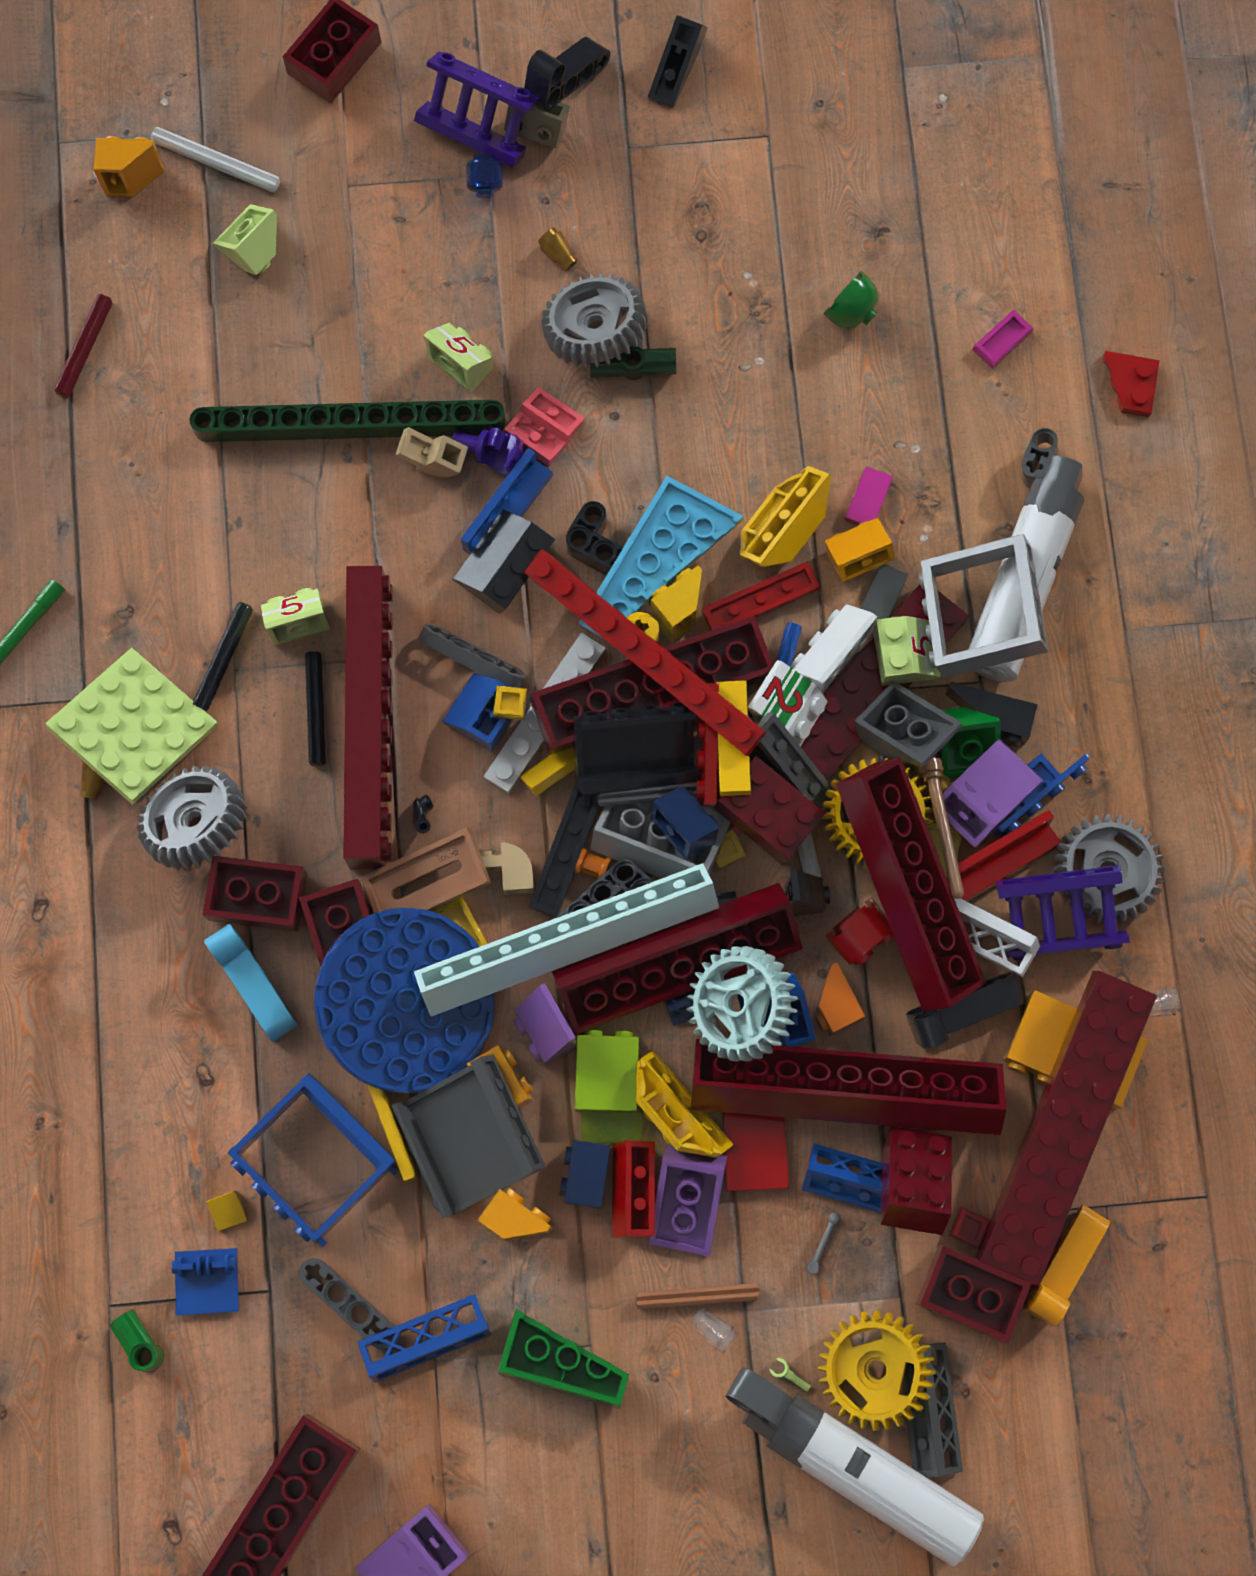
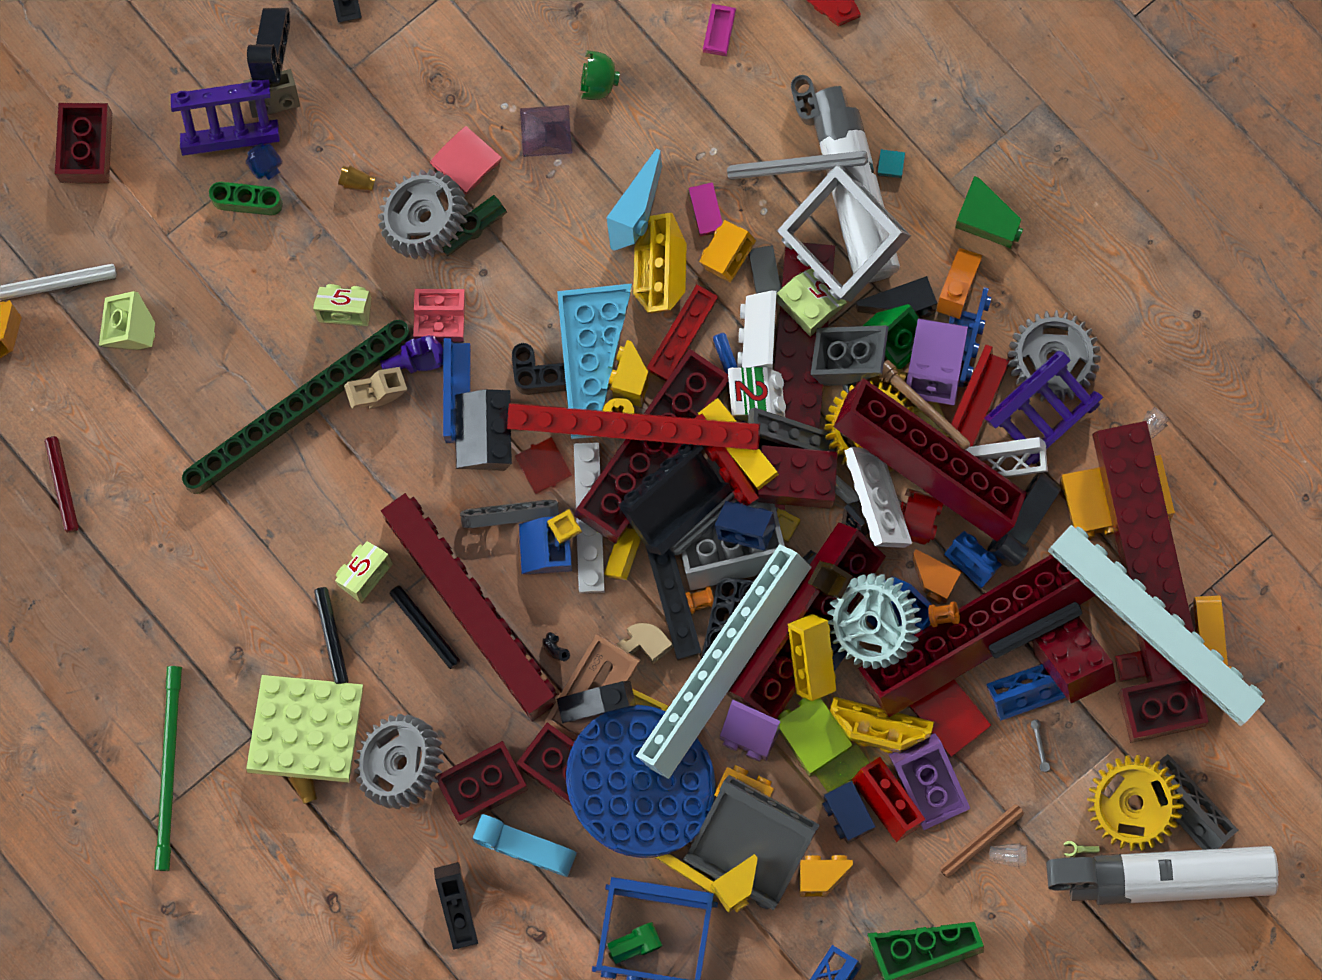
camera: 30 degrees left, 0 degrees up
(147, 992) = (455, 905): none -> black slope
(294, 1155) = (640, 941): none -> green piece
(420, 892) = (596, 701): none -> black slope
(422, 1168) = (736, 885): none -> yellow slope
(438, 187) = (236, 191): none -> green beam
(538, 634) = (543, 465): none -> clear red piece
(657, 996) = (812, 657): none -> yellow brick
(673, 299) = (466, 159): none -> coral slope
(726, 932) = (830, 579): none -> dark brown panel
(769, 324) = (546, 130): none -> clear purple slope
(795, 448) = (631, 213): none -> medium azure wedge
(817, 1045) = (943, 614): none -> orange bush
(830, 886) = (878, 499): none -> white plate
(887, 1011) = (972, 559): none -> blue bracket
(897, 1125) = (1035, 630): none -> black axle
(986, 512) = (797, 165): none -> light grey axle
(1023, 1211) = (1156, 625): none -> light aqua brick
(1064, 733) = (958, 283): none -> orange slope
(1079, 575) = (891, 163): none -> teal tile
(1140, 688) = (988, 216): none -> green slope

